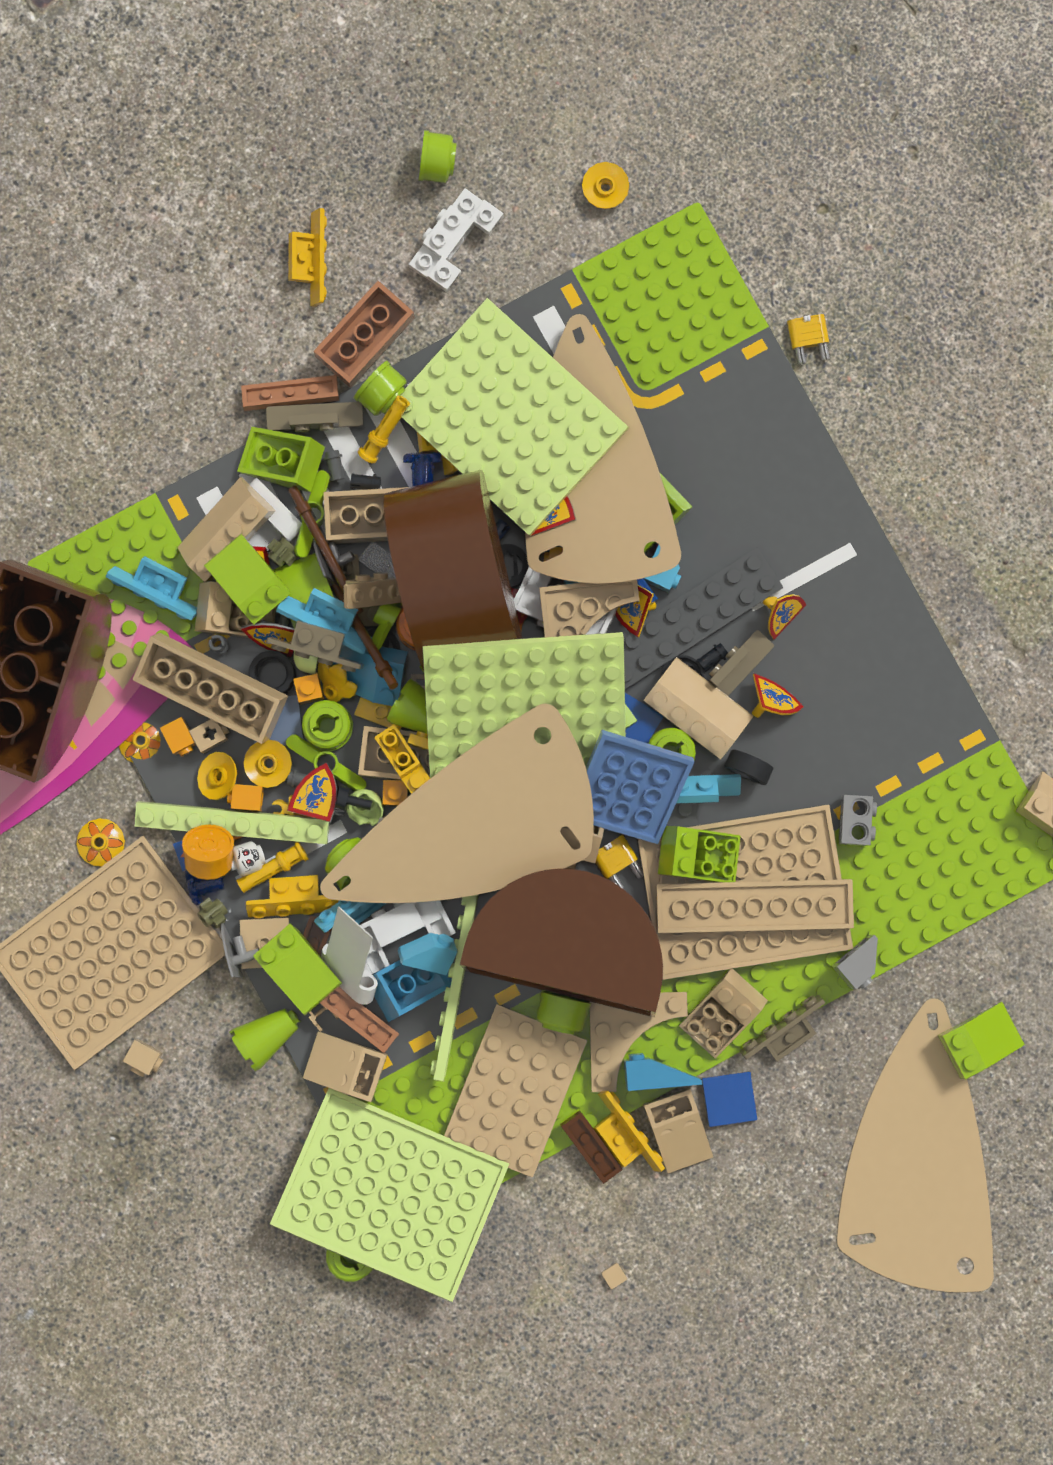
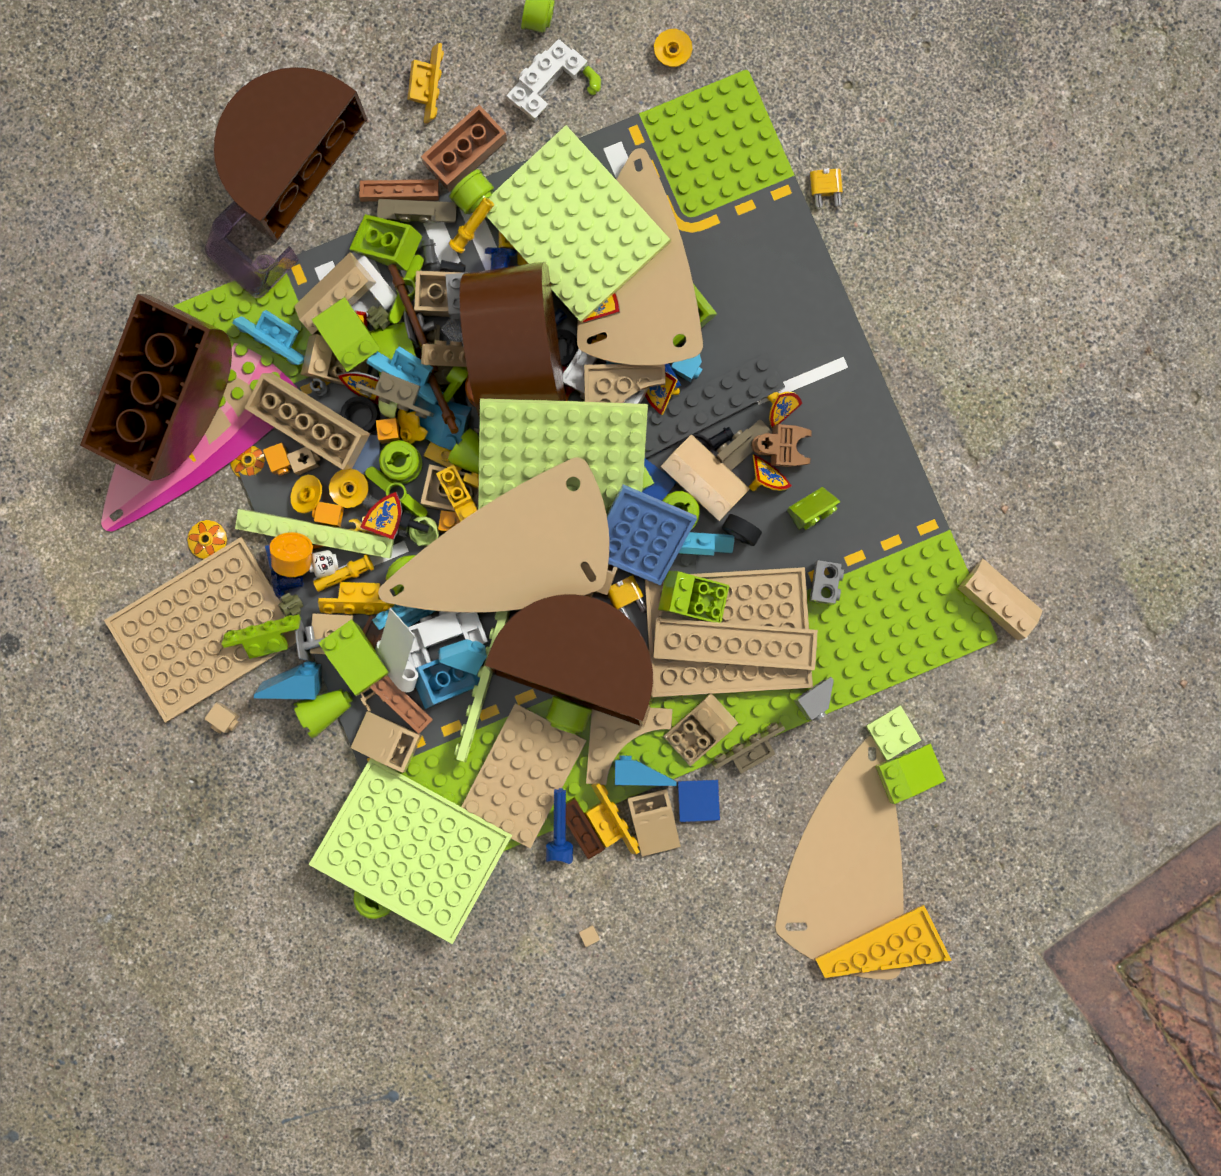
camera: 10 degrees right, 0 degrees up
(123, 517) = (253, 276): none -> windscreen
(144, 351) = (282, 142): none -> reddish brown brick
(183, 956) = (263, 638): none -> lime bracket
(227, 1007) = (296, 683): none -> dark azure slope
(375, 518) = (453, 294): none -> light grey brick
(514, 234) = (595, 80): none -> lime arm
(567, 1174) = (559, 848): none -> blue piece
(787, 659) = (782, 445): none -> medium nougat piece
(829, 732) = (812, 507): none -> lime slope
(955, 993) = (893, 733): none -> yellowish green plate
(983, 1248) = (896, 944): none -> yellow wing

